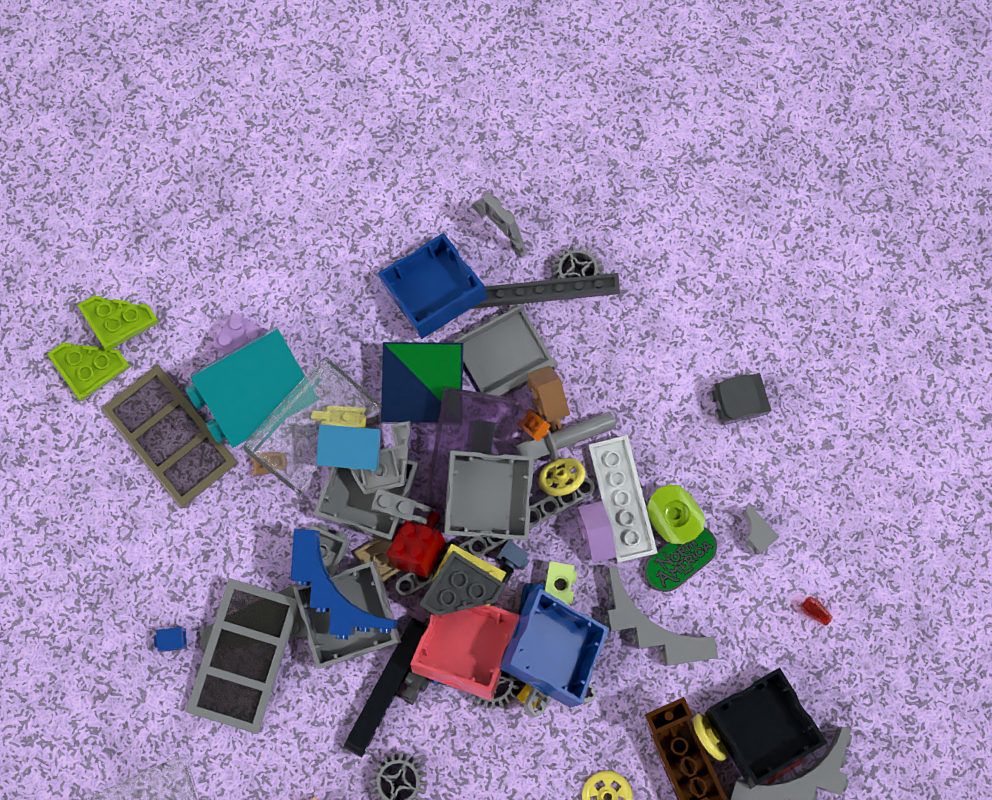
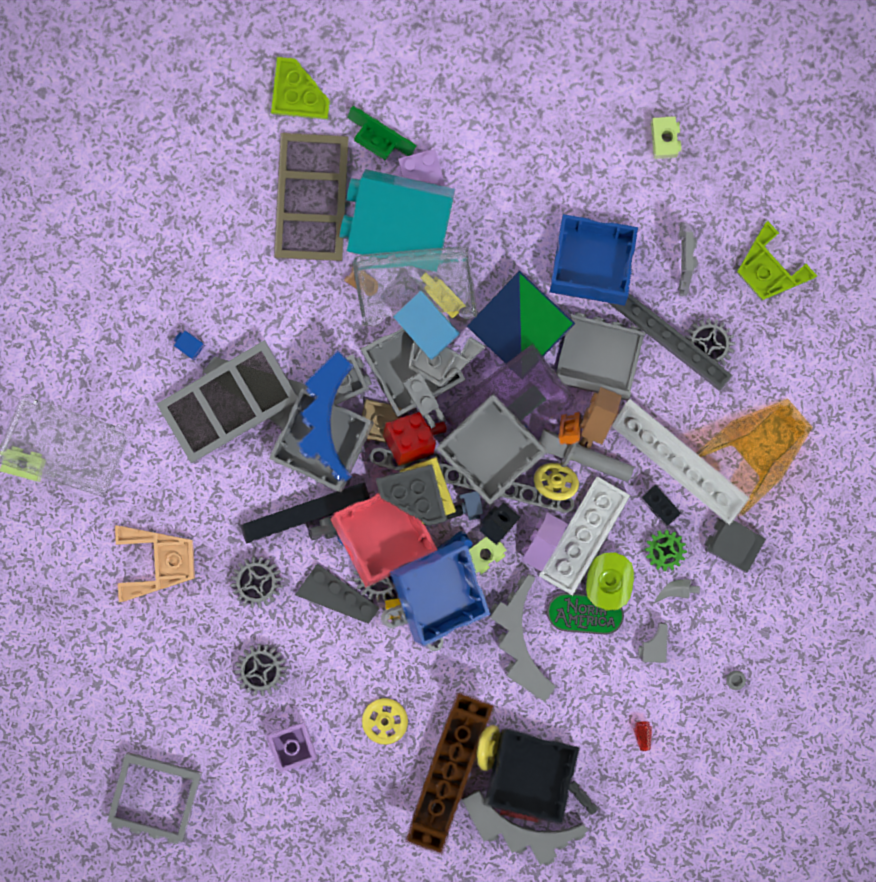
camera: 40 degrees right, 10 degrees up
(116, 319) = (347, 75): lime plate -> none
(180, 343) = (377, 136): none -> green bracket
(406, 164) = (662, 126): none -> yellowish green brick
(469, 731) = (334, 594): none -> dark grey wing
(548, 549) = (498, 523): none -> black brick
(566, 184) = (765, 273): none -> lime wing
(641, 373) = (680, 462): none -> white plate
(657, 421) = (660, 505): none -> black brick
(688, 300) = (766, 442): none -> clear yellow windscreen
(696, 460) = (669, 542): none -> bright green gear
(731, 472) = (678, 588): none -> light grey bar
(820, 707) = (582, 797): none -> dark grey axle
(842, 501) = (736, 680): none -> light grey plate

